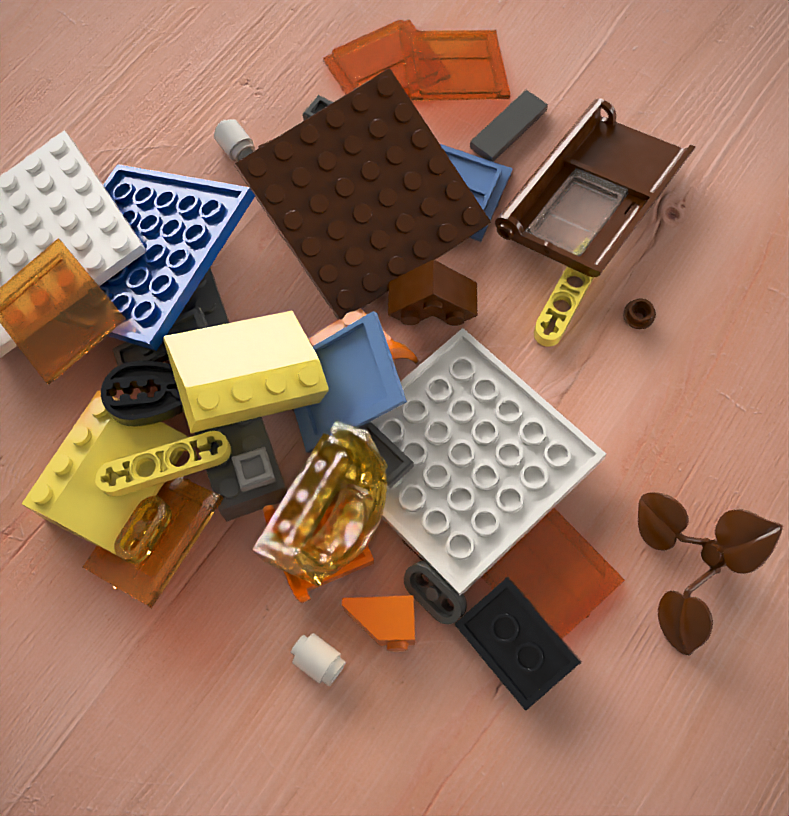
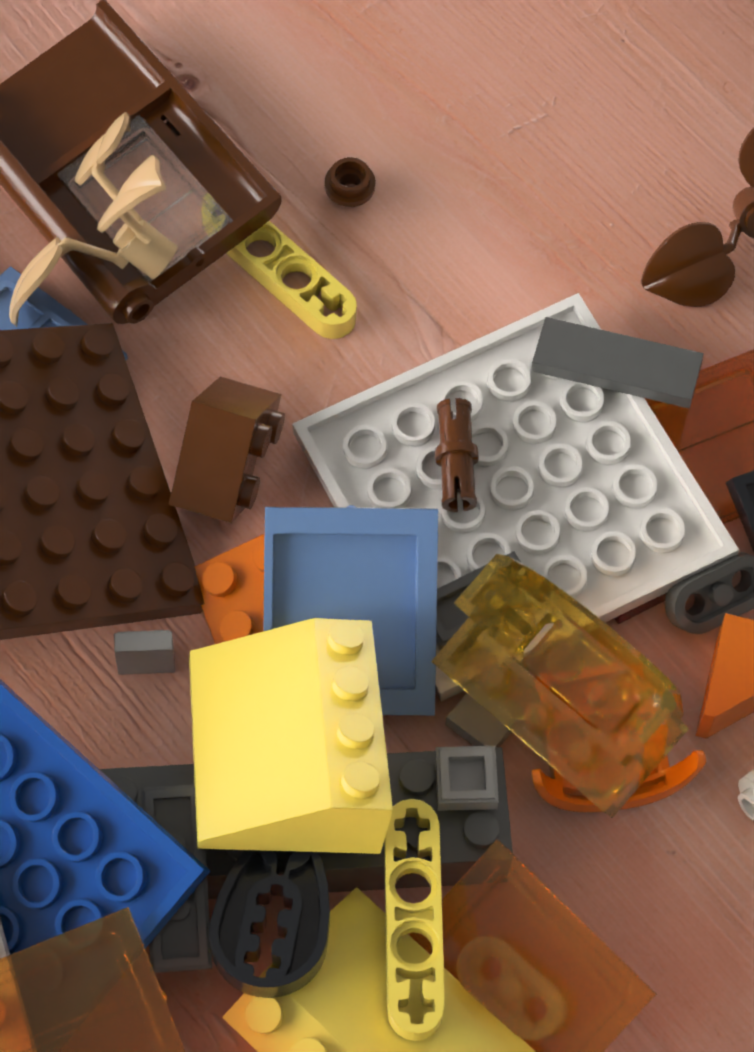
camera: 80 degrees left, 5 degrees down
(302, 299) = (144, 652): none -> light grey tile
(466, 414) = (456, 455): none -> reddish brown pin
(536, 210) = (136, 239): none -> tan plant
(562, 488) = (617, 362): none -> dark grey tile

